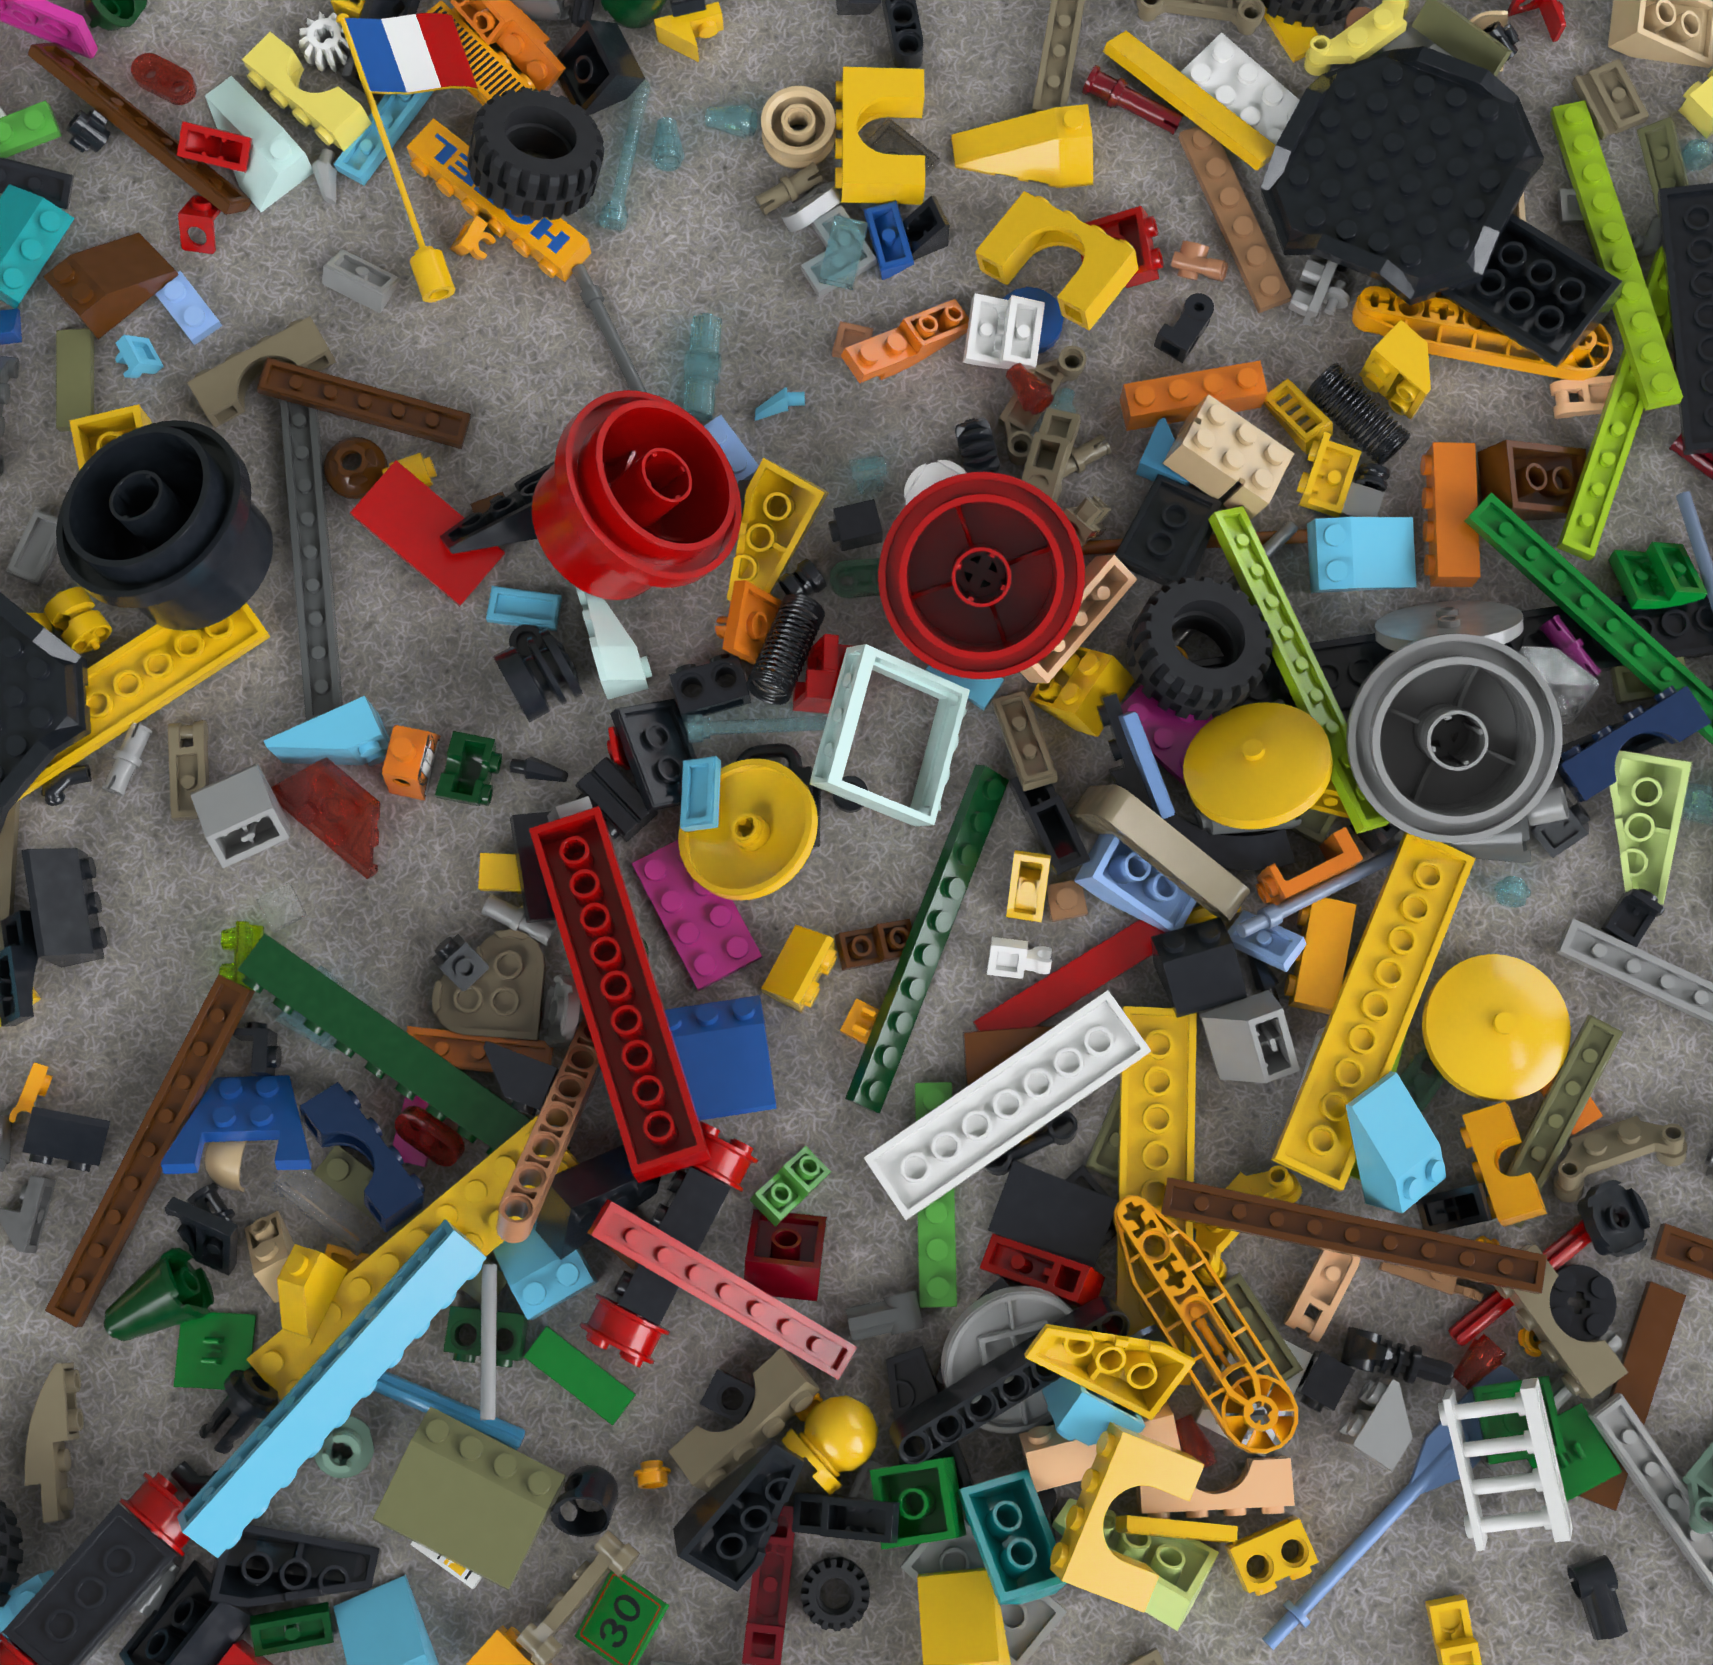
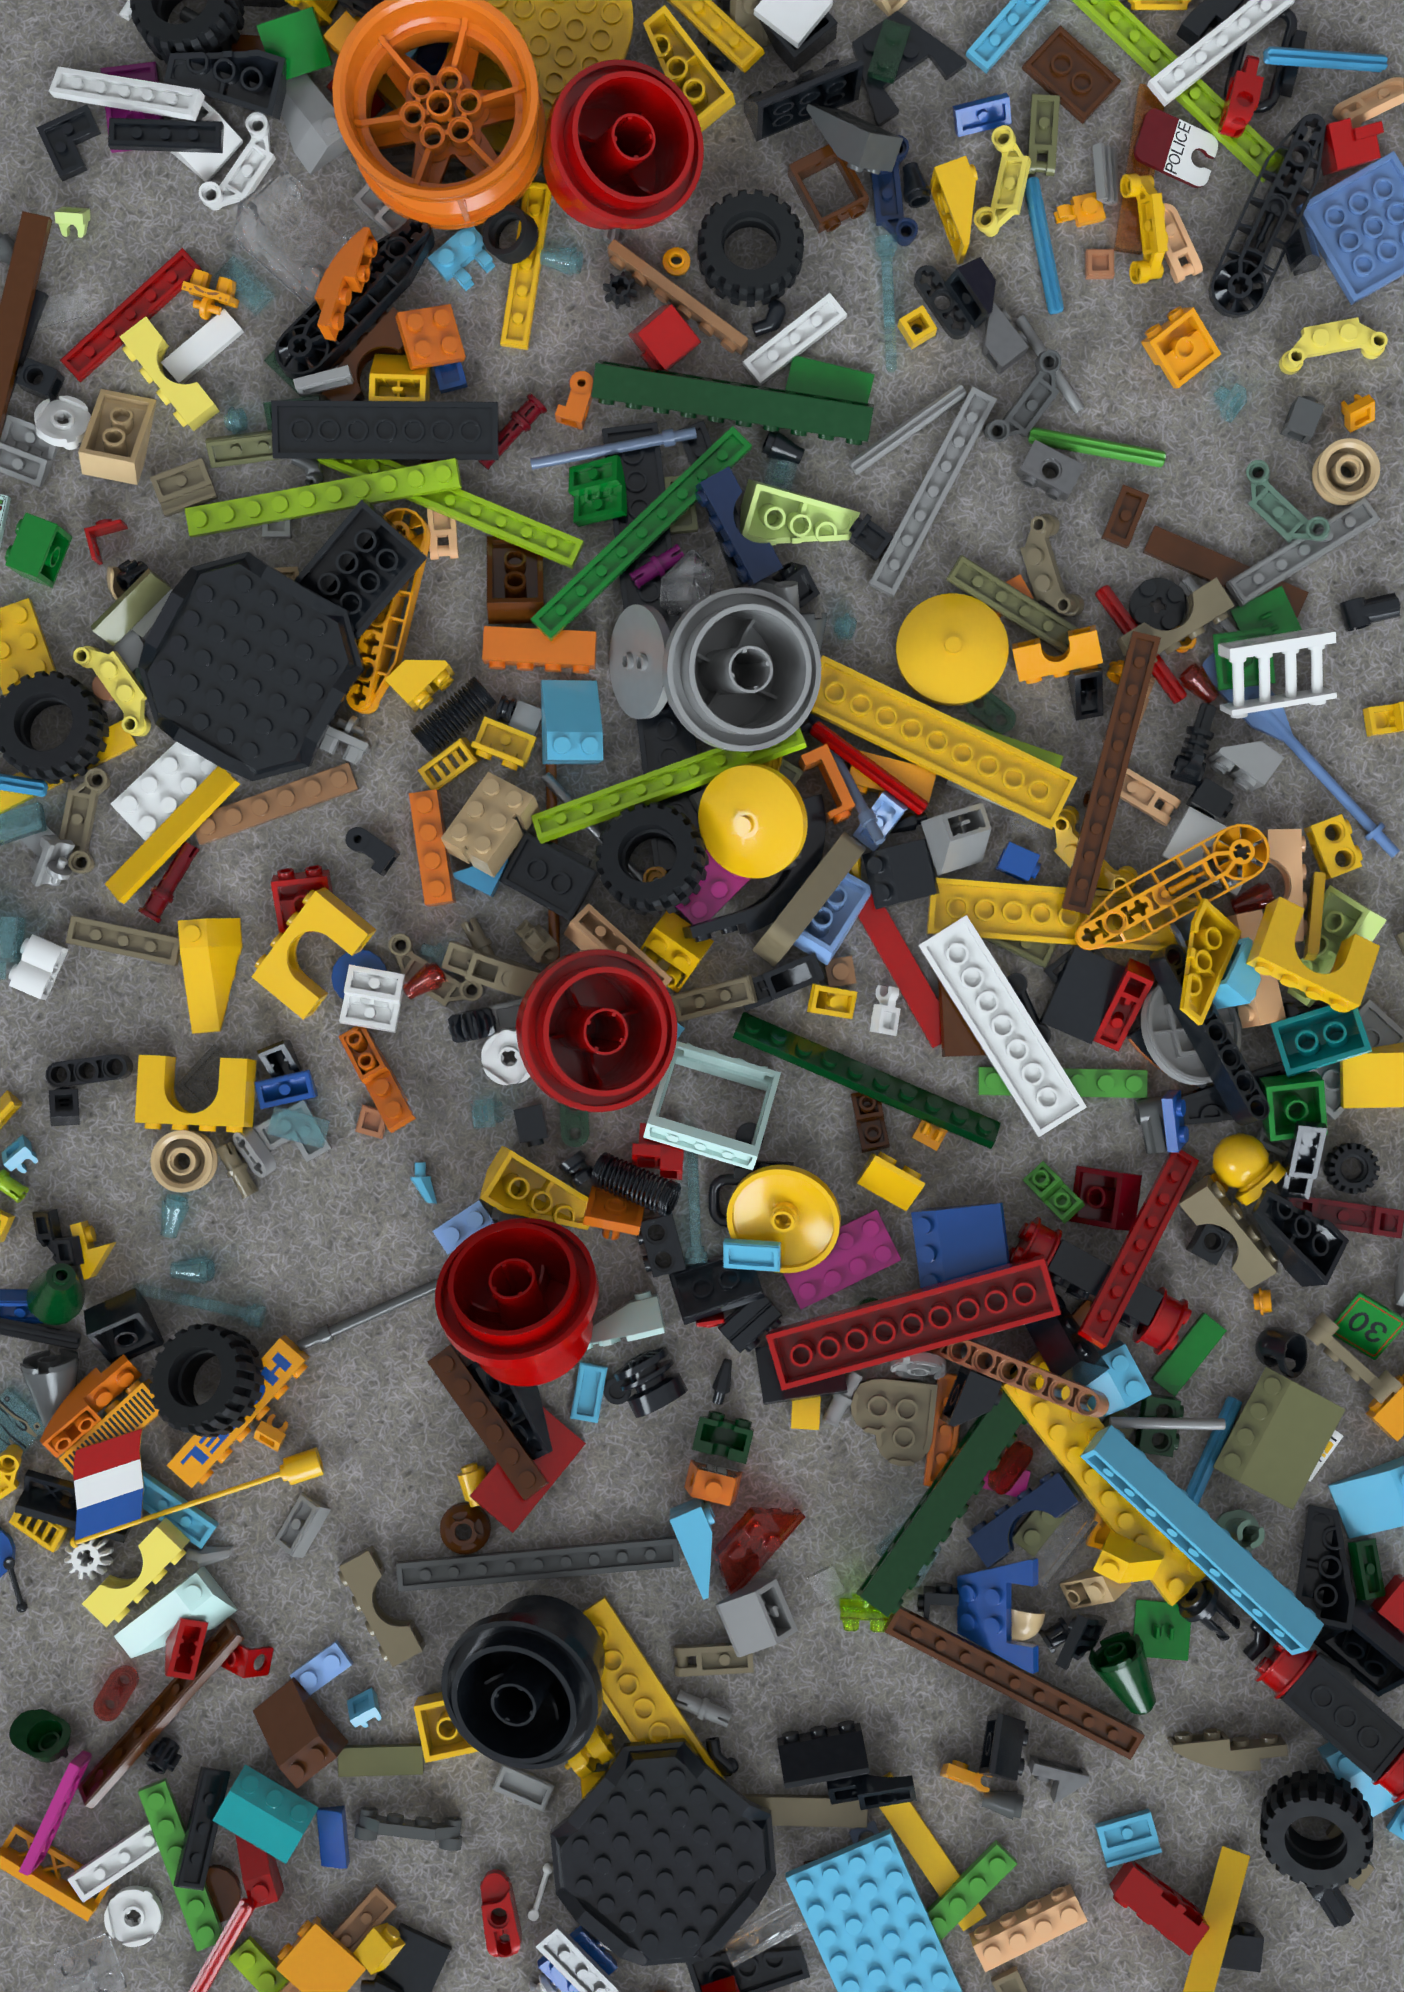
camera: 85 degrees left, 10 degrees up
(363, 403) = (413, 1522): reddish brown tile -> none
(459, 962) = (875, 1445): black bracket -> none
(479, 487) = (488, 1422): none -> reddish brown plate
(570, 808) = (762, 1357): light grey tile -> none
(702, 366) = (391, 1245): clear light blue piece -> none
(891, 1340) = (1173, 1113): none -> blue plate
(1146, 764) = (748, 906): medium blue tile -> none
(1193, 261) = (315, 840): nougat plate -> none
(1222, 1124) = (1018, 862): none -> blue brick
(1261, 1326) = (1171, 846): olive tile -> none
(1334, 920) = (869, 768): none -> red axle
(1393, 1146) = (1044, 736): medium azure slope -> none
(1597, 1212) = (1103, 586): black plate -> none

